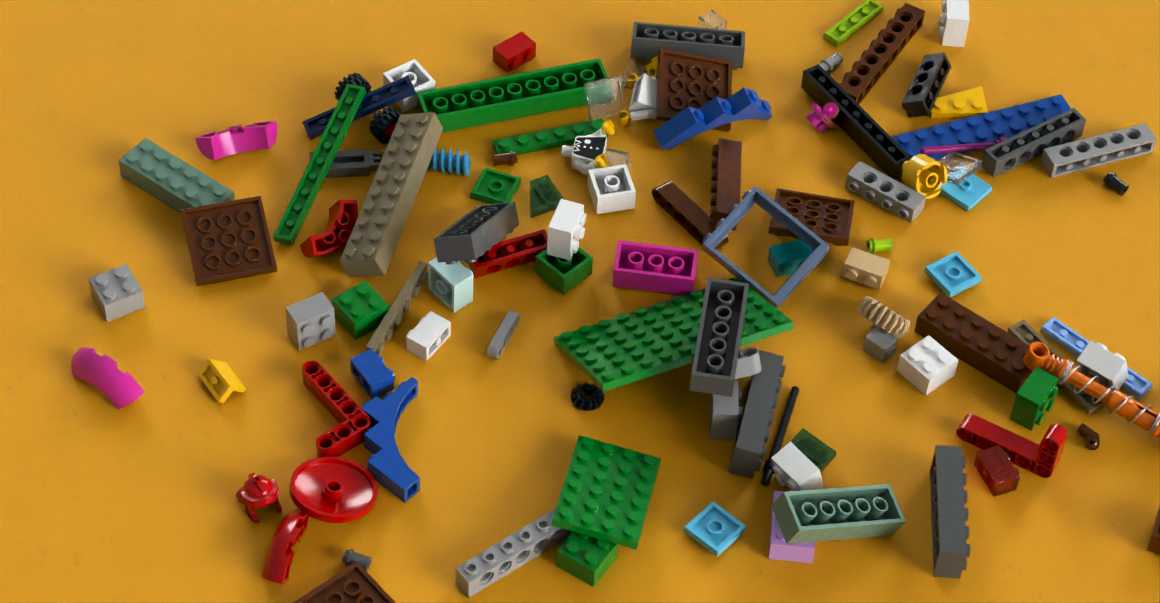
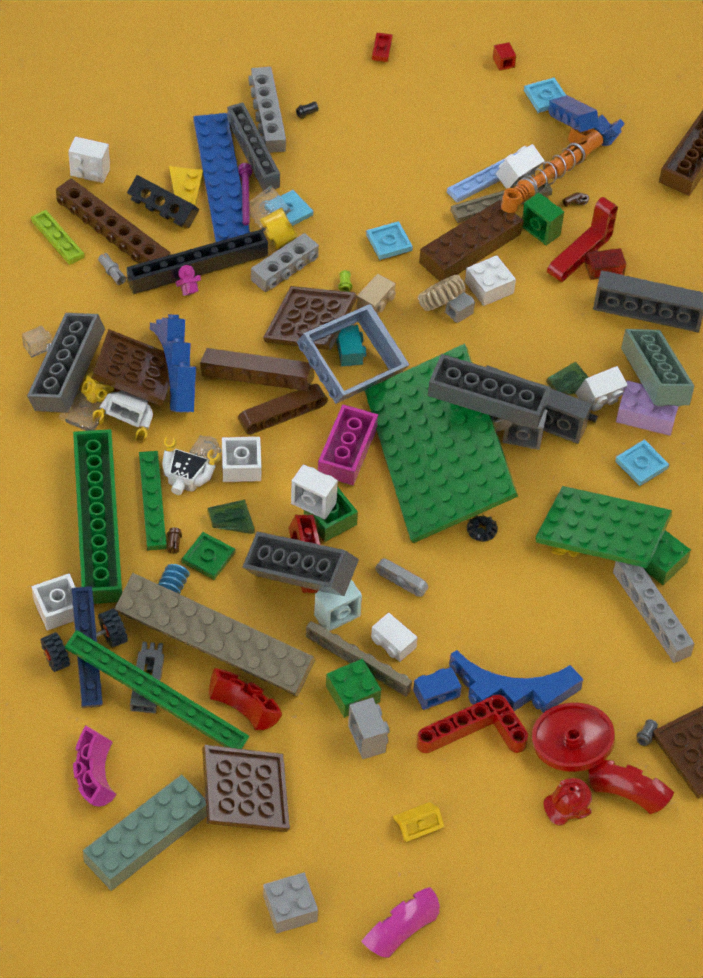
camera: 80 degrees left, 5 degrees up
(514, 52) = (29, 506): red brick -> none
(605, 97) = (121, 440): clear tile -> none

